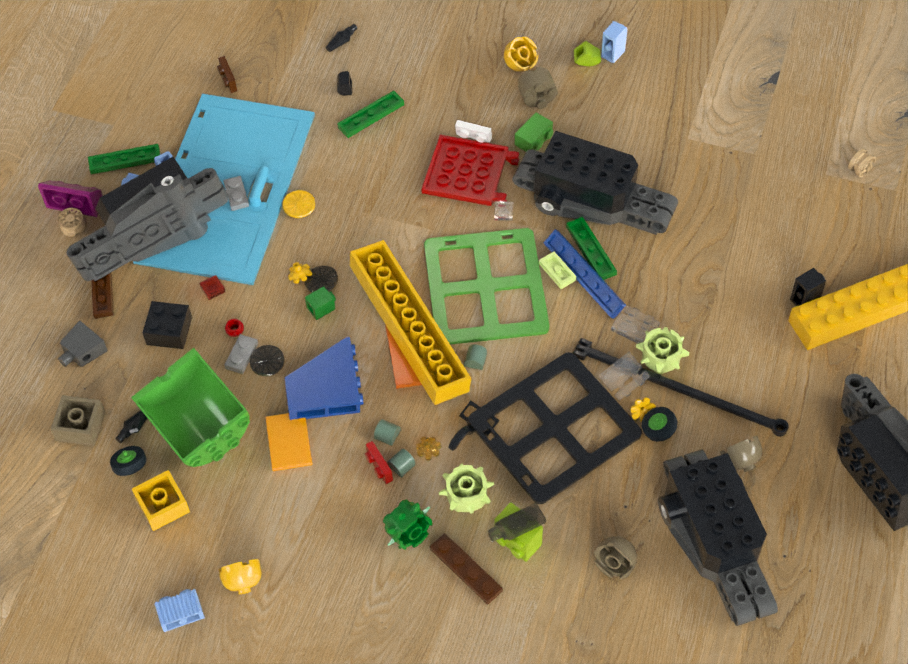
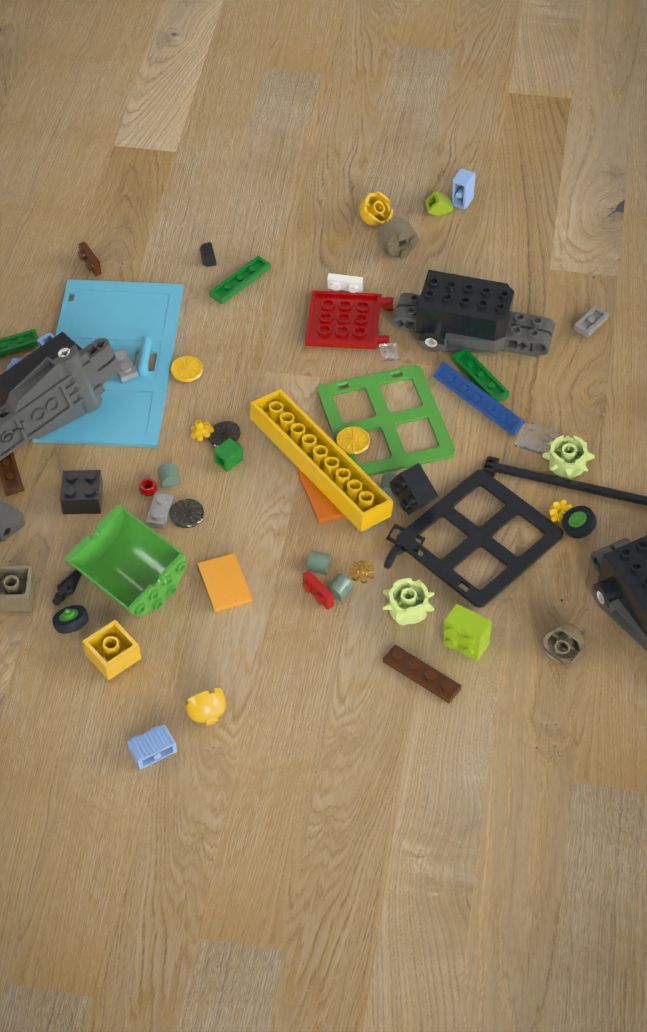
camera: 10 degrees left, 5 degrees down
(212, 287) = (118, 453): clear red plate -> none
(257, 317) = (169, 475): none -> sand green brick
(325, 384) = (250, 527): blue slope -> none
(341, 38) = (195, 214): black piece -> none
(407, 524) = (359, 639): green brick -> none
(447, 303) = (353, 440): none -> yellow wheel
(494, 367) = (413, 489): none -> black brick
(517, 523) = (468, 620): clear smoke hinge -> none
(534, 133) = (403, 279): bright green brick -> none
(557, 270) = (452, 398): yellowish green plate -> none
(621, 371) = (532, 481): clear plate -> none
(717, 202) = (591, 321): none -> light grey plate

